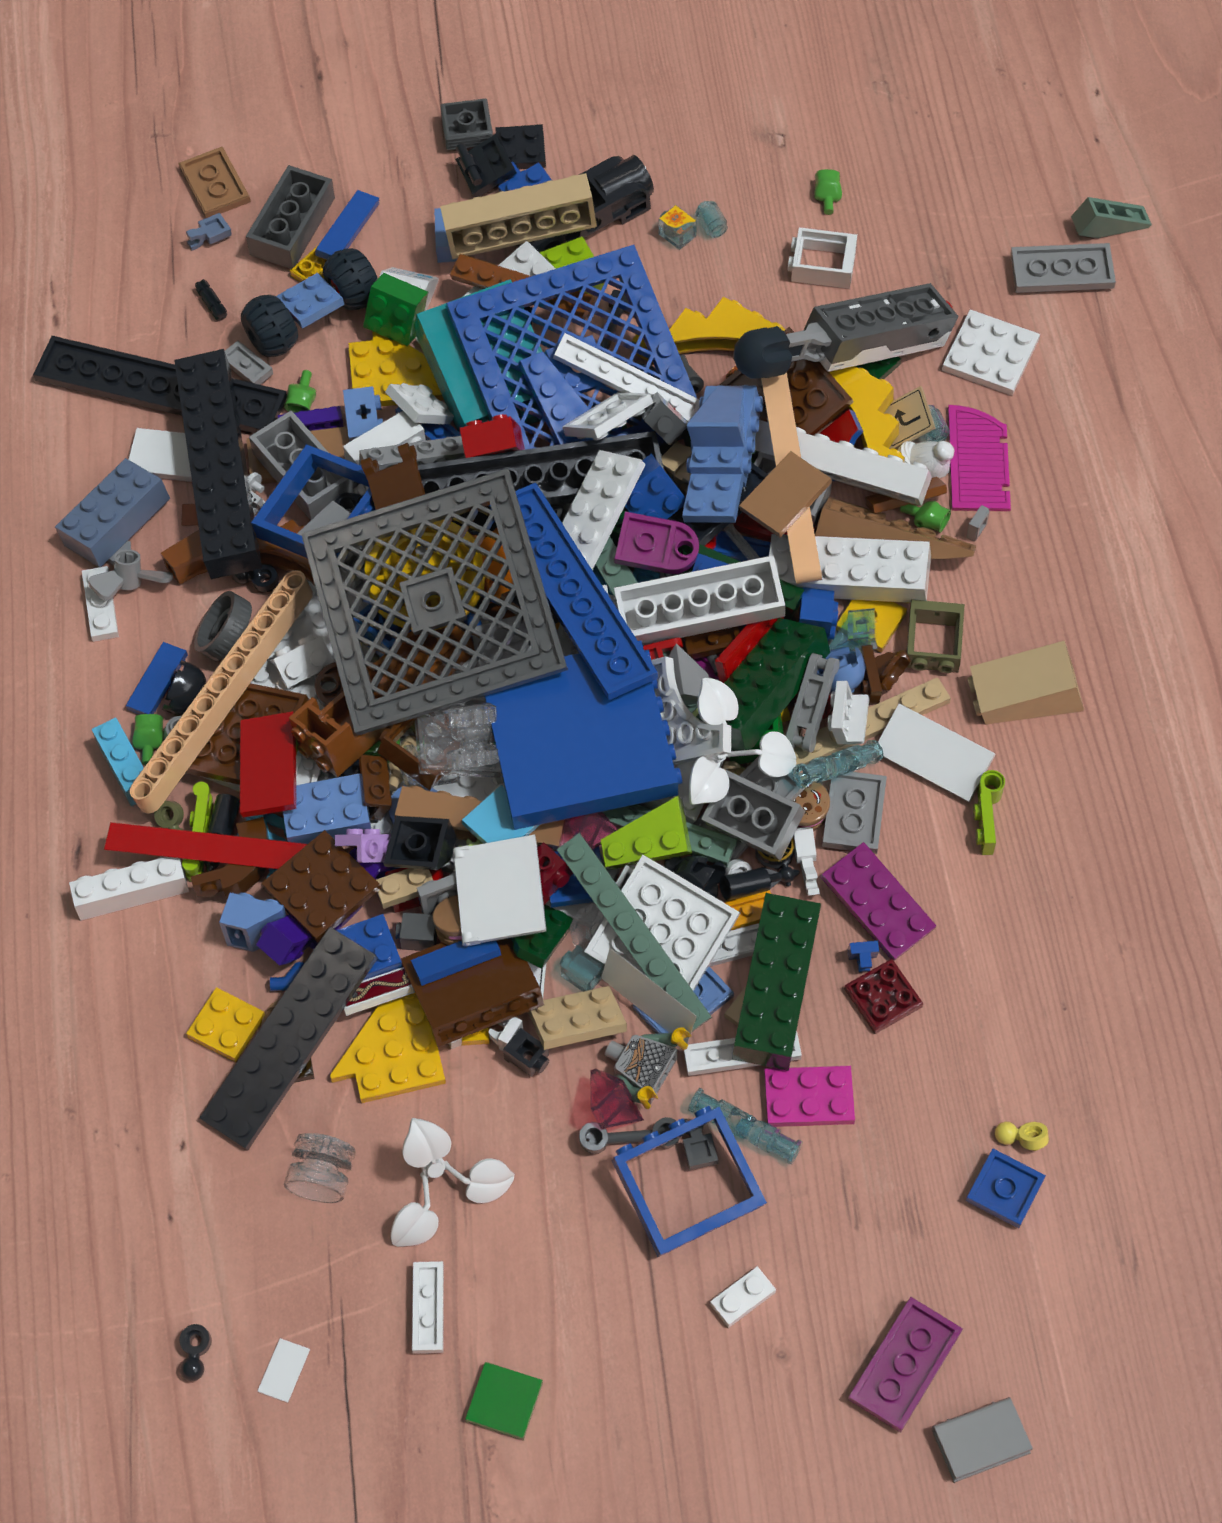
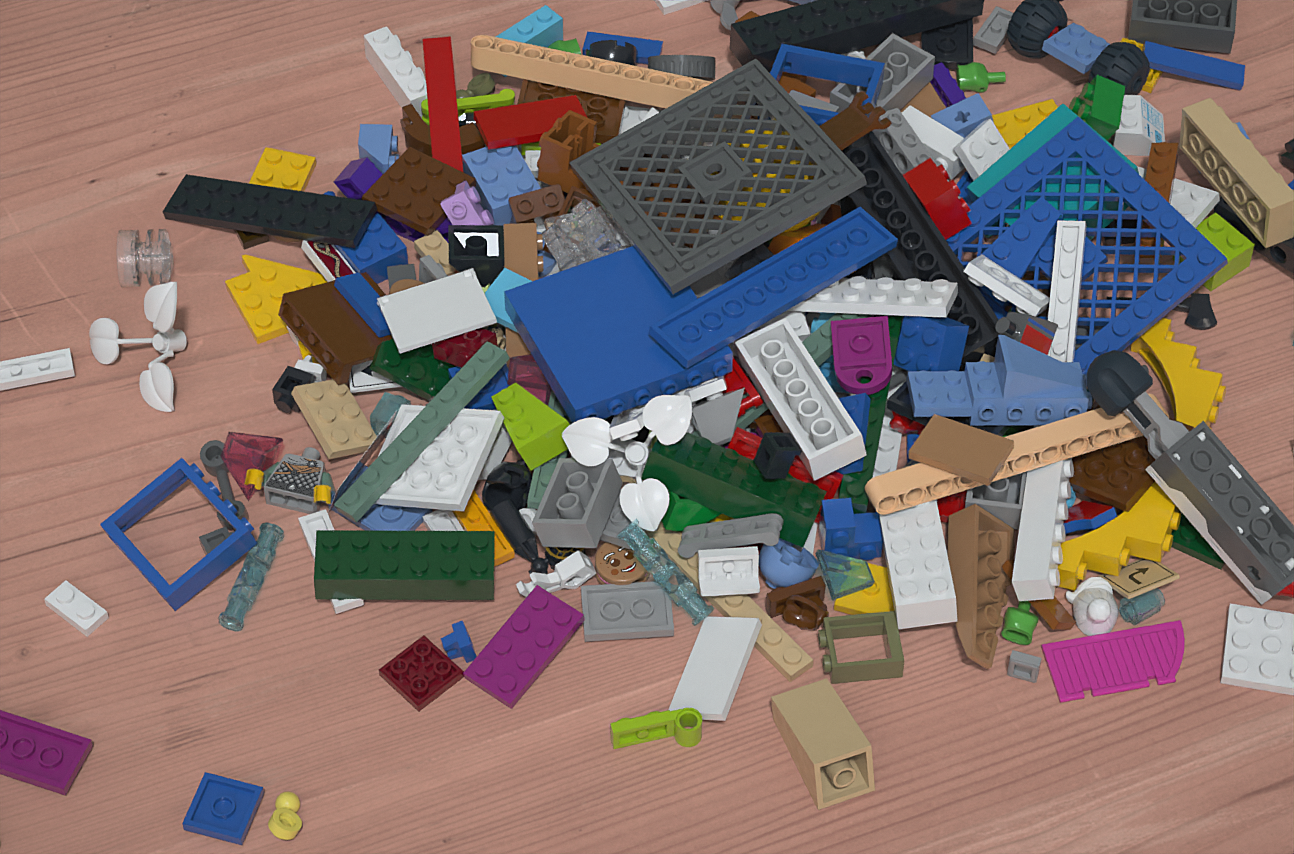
camera: 75 degrees right, 10 degrees down
(762, 633) = (776, 454): none -> black brick
(809, 1096) = (296, 628): dark pink plate -> none

